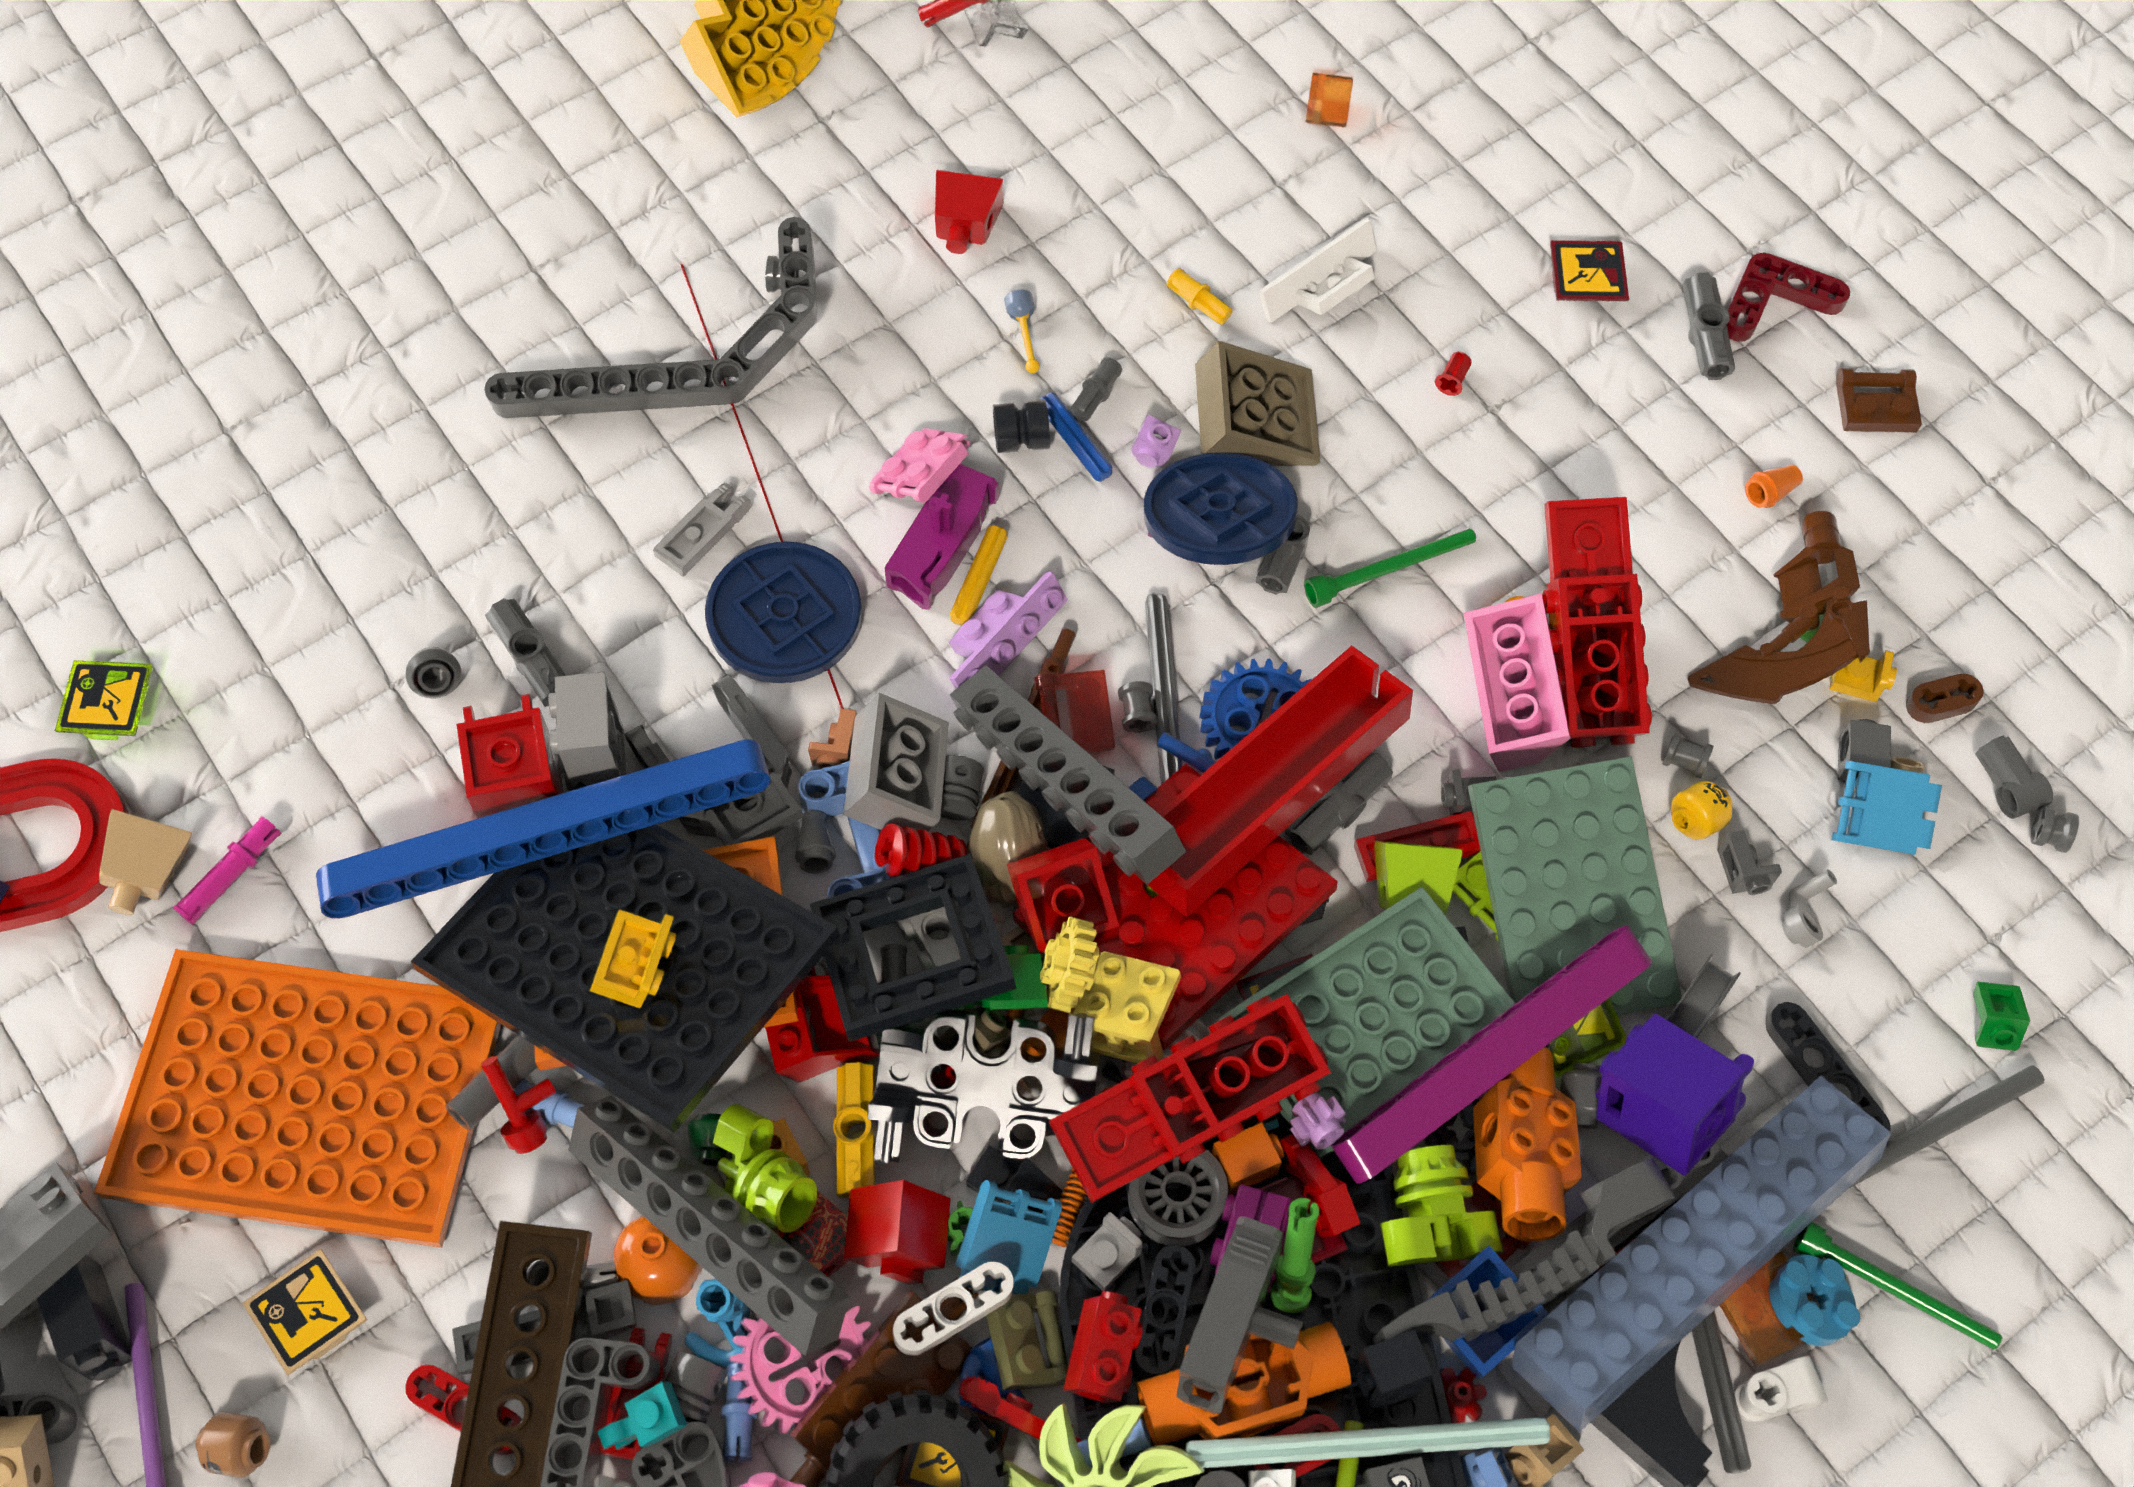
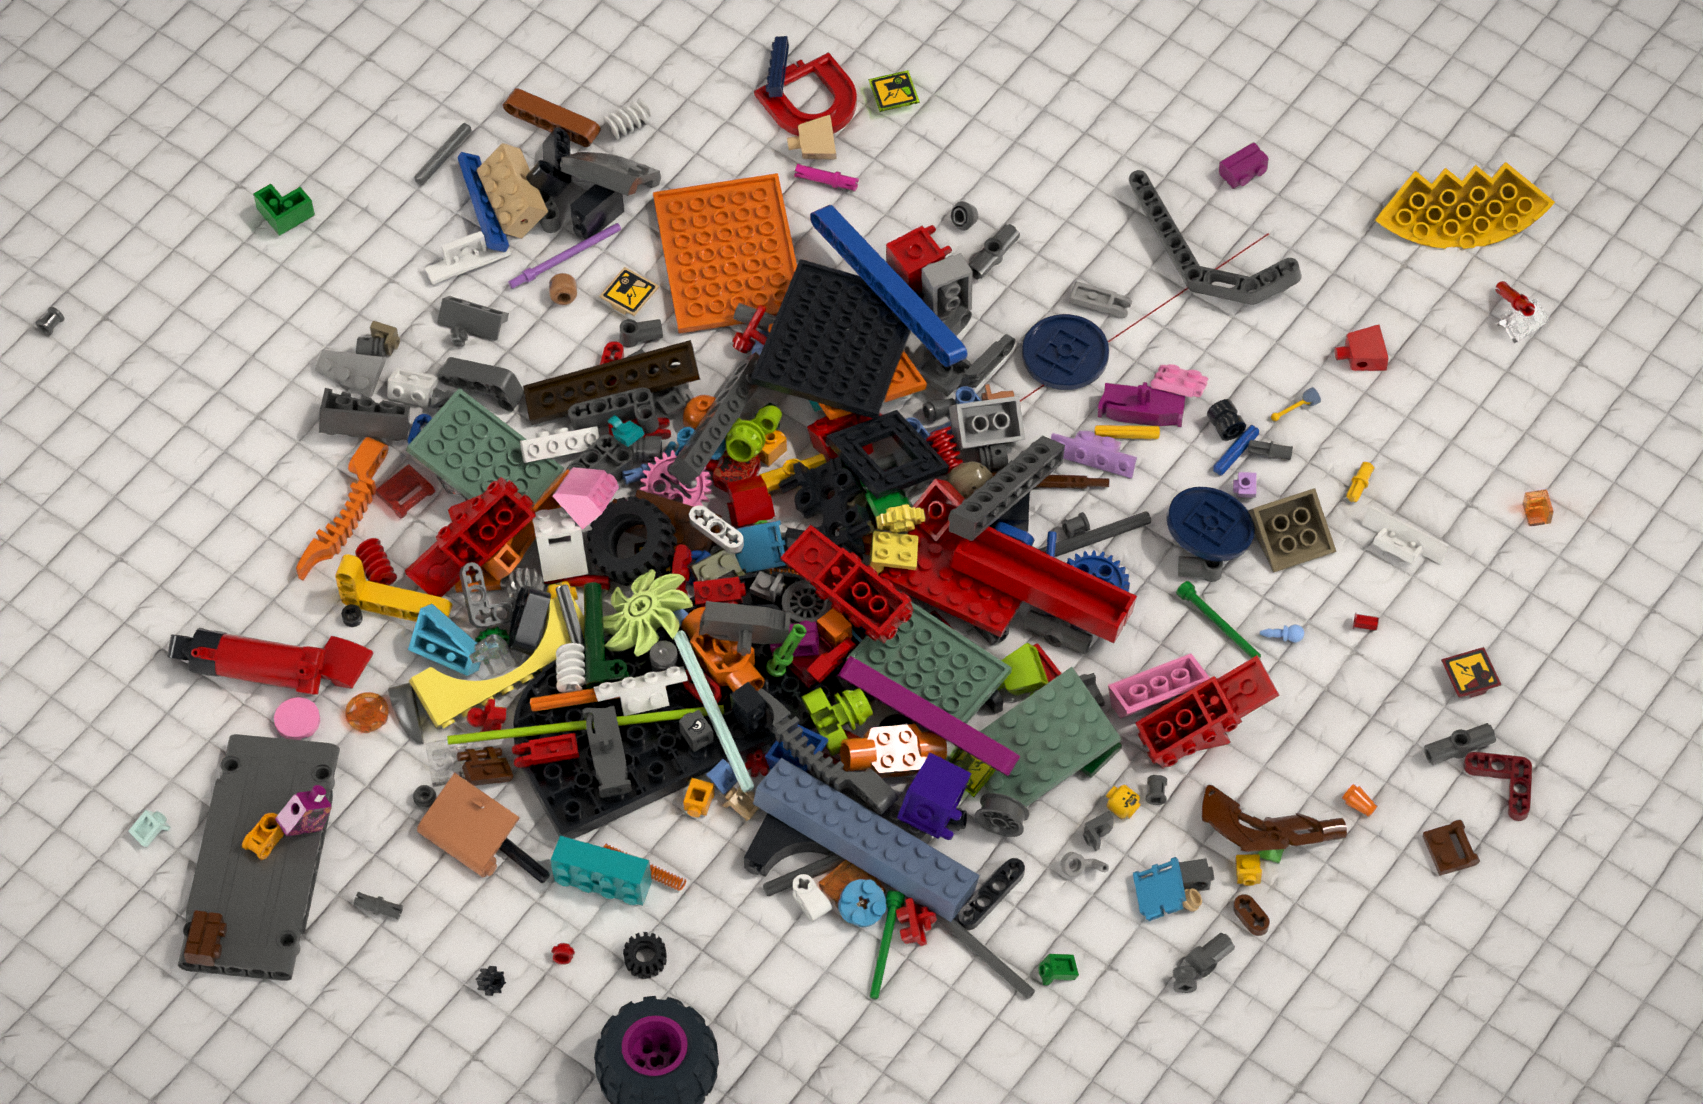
camera: 75 degrees right, 5 degrees down
(408, 1315) = (634, 332): none -> dark grey piece
(543, 247) = (1243, 165): none -> magenta brick
(632, 957) = (828, 336): yellow bracket -> none
(1086, 704) = (1061, 503): clear red plate -> none
(1317, 1121) = (859, 645): lavender gear -> none
(1446, 471) = (1292, 633): none -> light blue bar
(1888, 1228) = (919, 920): none -> red hips

